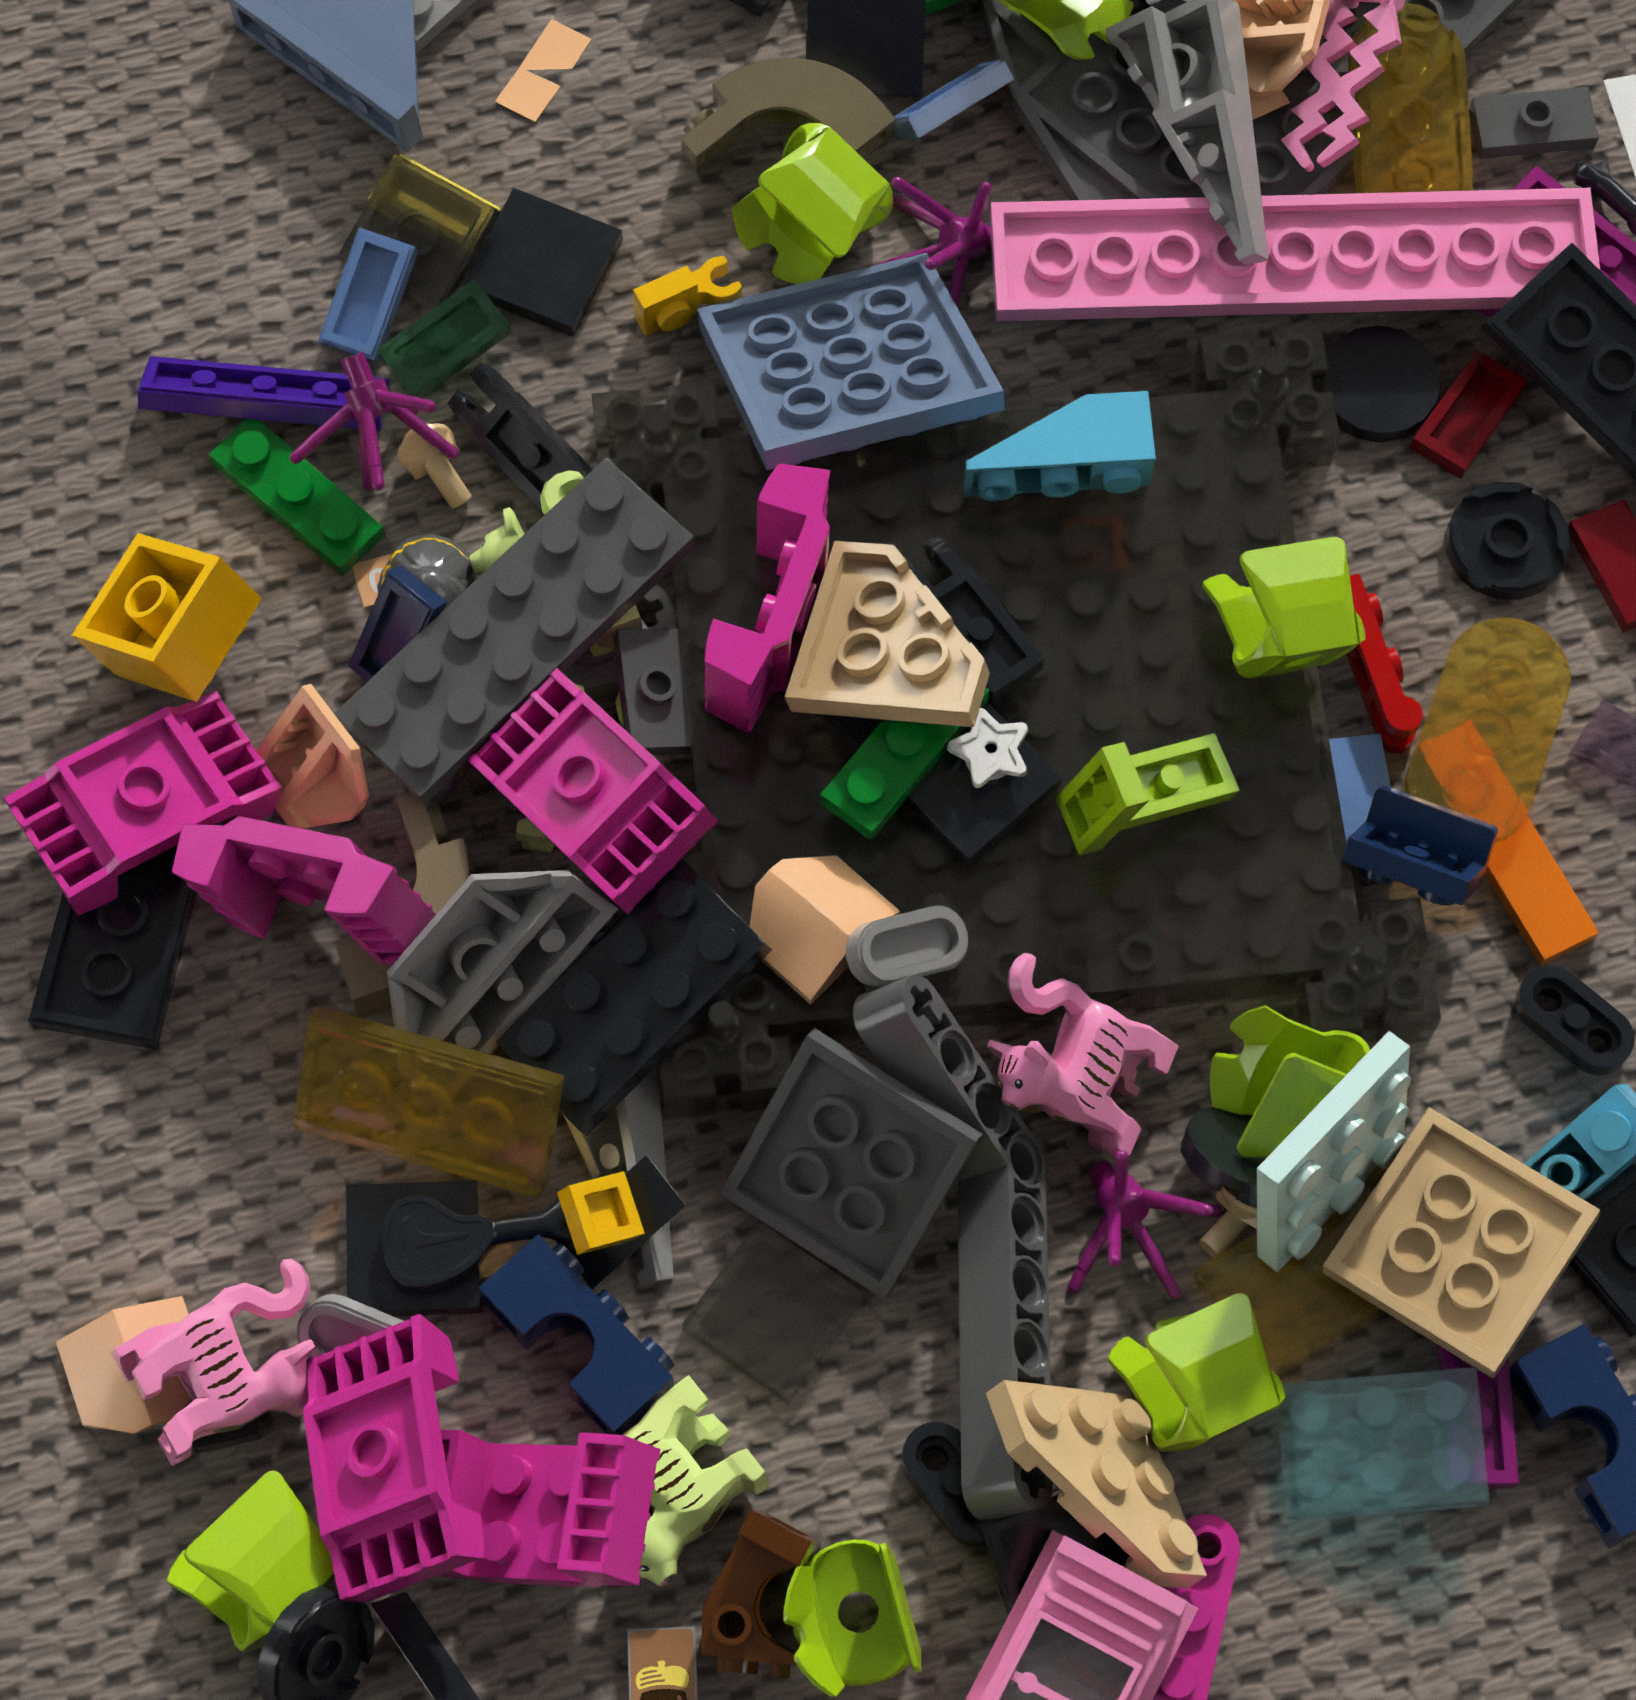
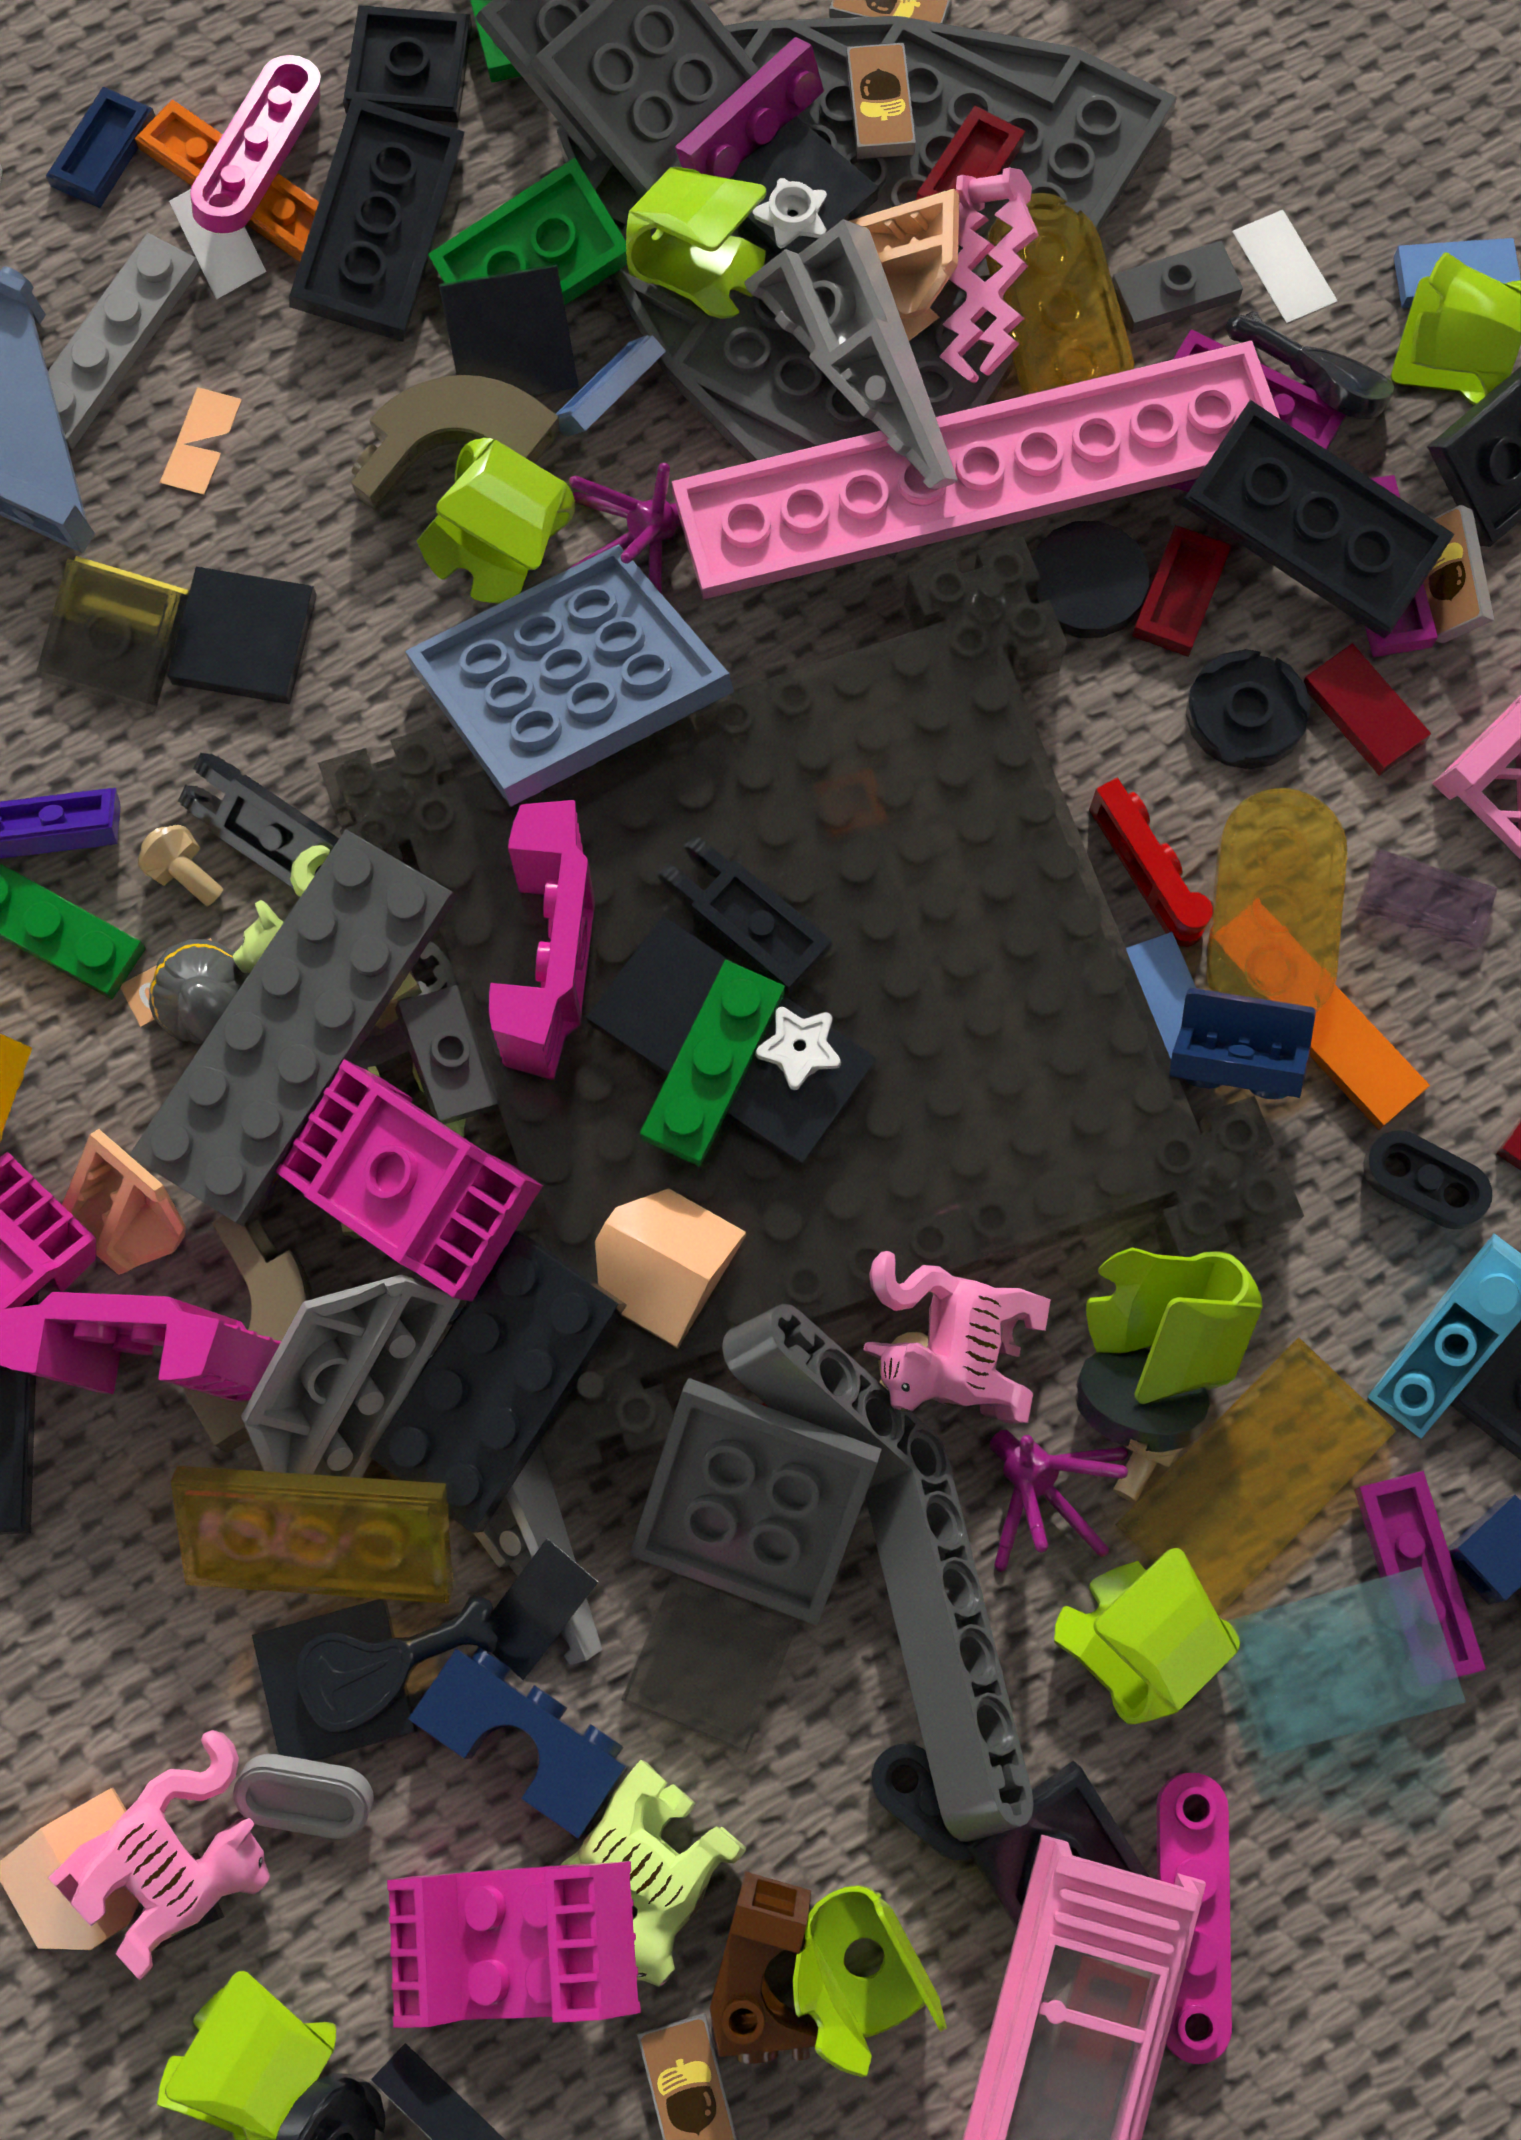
camera: 10 degrees left, 5 degrees up
(366, 402) = (92, 822): magenta plant -> none
(368, 294) = (74, 707): medium blue tile -> none
(384, 1463) = (347, 1934): dark pink plate -> none
(397, 617) = (172, 1039): dark blue tile -> none
(444, 340) = (160, 738): clear green plate -> none
(600, 1213) = (514, 1611): yellow plate -> none
(675, 297) = (381, 643): yellow plate -> none
(884, 646) = (669, 966): tan plate -> none
(906, 945) = (761, 1271): light grey tile -> none
(1082, 446) = (821, 711): medium azure slope -> none
(1107, 1470) = (1081, 1765): tan plate -> none
(1136, 789) = (955, 1055): lime bracket -> none
(1294, 610) = (1065, 834): lime piece -> none
(1332, 1153) = (1235, 1388): light aqua plate -> none
(1461, 1242) = (1376, 1440): tan plate -> none

